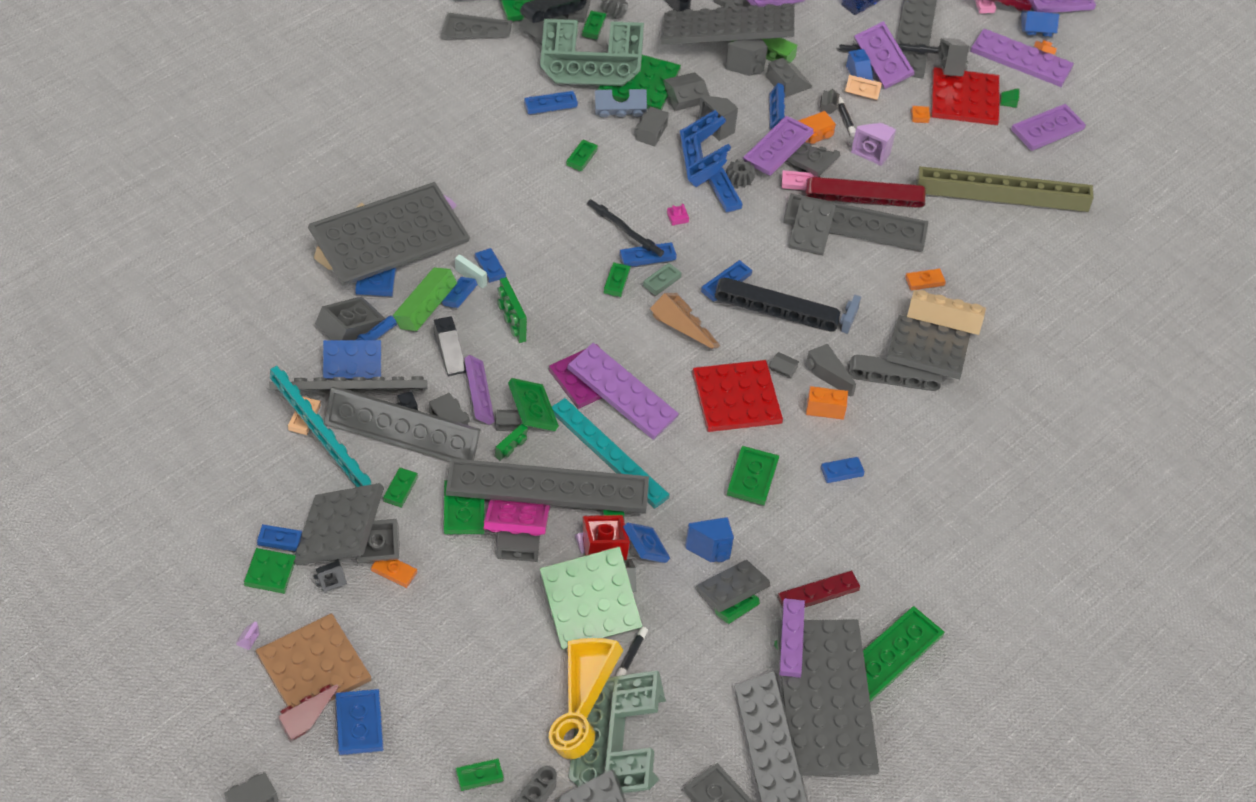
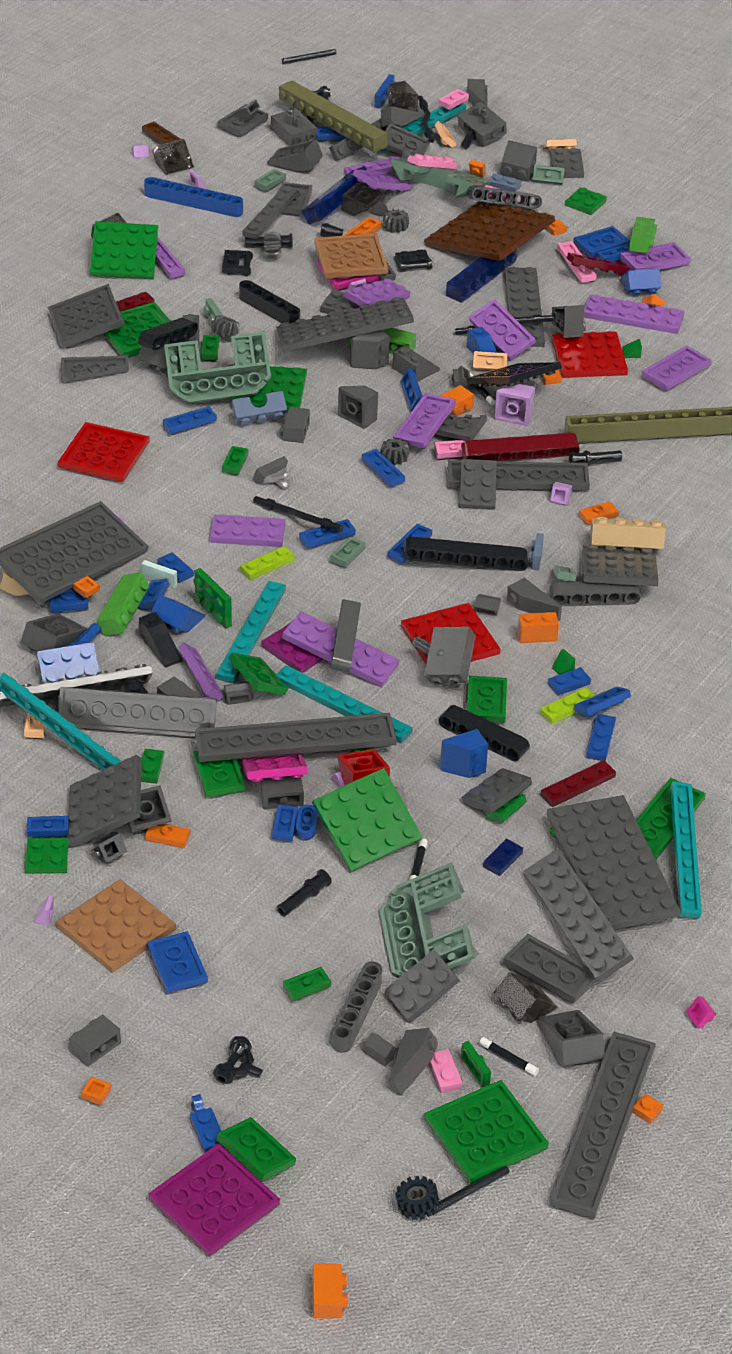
camera: 10 degrees left, 10 degrees down
(302, 718) = (120, 968): slope -> none
(394, 274) = (86, 587): none -> orange plate
(458, 123) = (103, 451): none -> red plate
(474, 319) = (177, 614): none -> blue slope
(507, 446) = (247, 708): green plate -> none
(511, 580) = (285, 823): none -> blue plate
(515, 662) = (310, 888): none -> black pin
(532, 585) = (306, 822): none -> blue plate
(545, 348) = (252, 629): none -> teal plate
(572, 236) = (247, 530): none -> medium lavender plate
(580, 276) = (267, 563): none -> lime plate
(588, 671) = (384, 880): yellow piece -> none
(614, 176) = (273, 472): none -> piece
(617, 279) = (304, 559): green plate -> none
(628, 380) = (345, 635): none -> dark grey beam
(646, 542) = (404, 768): blue tile -> none
(676, 313) = (369, 577): medium nougat wedge -> none
(678, 215) = (345, 496): dark pink tile -> none
(685, 90) = (319, 389): dark grey slope -> none
(697, 167) = (338, 426): blue wedge -> none
(718, 664) = (503, 857): none -> clear blue plate
(725, 421) = (447, 654): none -> dark grey piece
(740, 515) = (498, 738): none -> black beam
(792, 638) = (567, 818): medium lavender plate -> none
(834, 498) = (564, 707): none -> lime plate
(842, 448) = (564, 662): none -> green slope
(856, 542) = (601, 737): none -> blue plate
(868, 501) = (602, 701): none -> blue plate
(870, 345) = (564, 574): none -> sand green plate
(881, 108) = (513, 373): none -> black plate
(893, 250) = (560, 493): none -> lavender slope
(905, 697) = (685, 850): none -> teal plate
(937, 215) = (596, 457): none -> black pin

